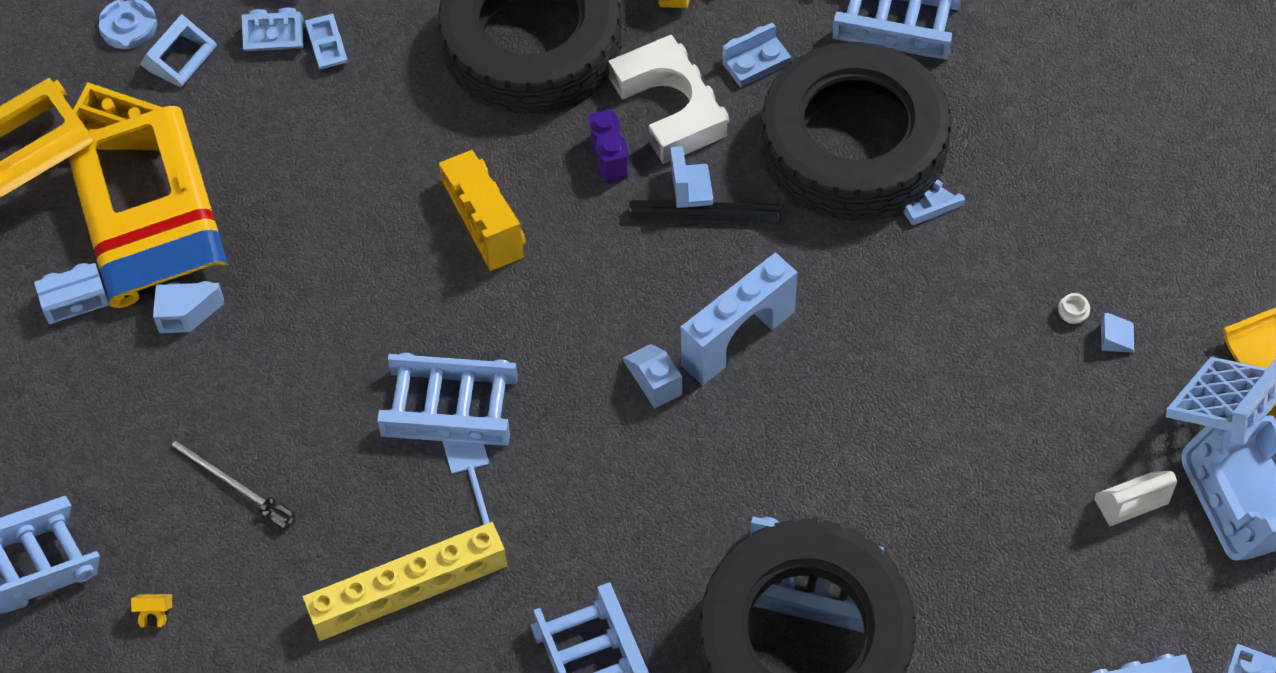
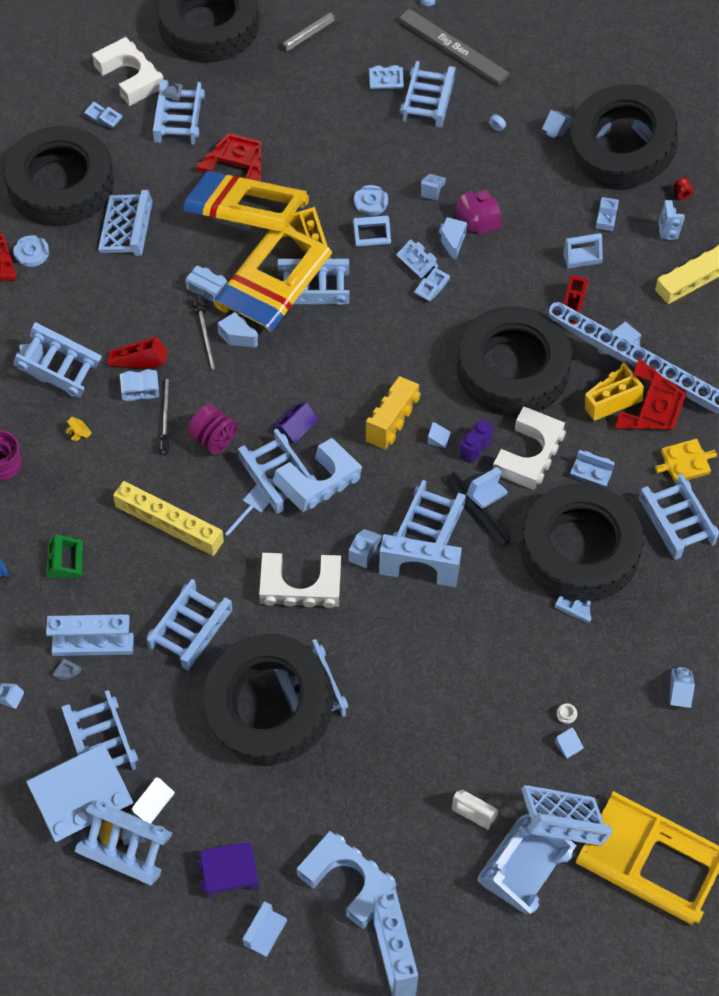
camera: 50 degrees right, 0 degrees up
(91, 324) = (199, 304): none -> piece
(105, 449) = (141, 354): none -> red slope
(154, 481) = (139, 385): none -> light blue brick
(199, 123) = (322, 296): none -> light blue fence
(318, 431) = (212, 428): none -> magenta wheel
(389, 328) = (297, 421): none -> dark purple panel
(516, 383) = (307, 492): none -> light blue arch
(559, 184) = (438, 436): none -> light blue slope
(630, 520) = (323, 593): none -> white arch
(697, 253) = (448, 521): none -> light blue fence
(1134, 165) = (681, 687): none -> light blue slope

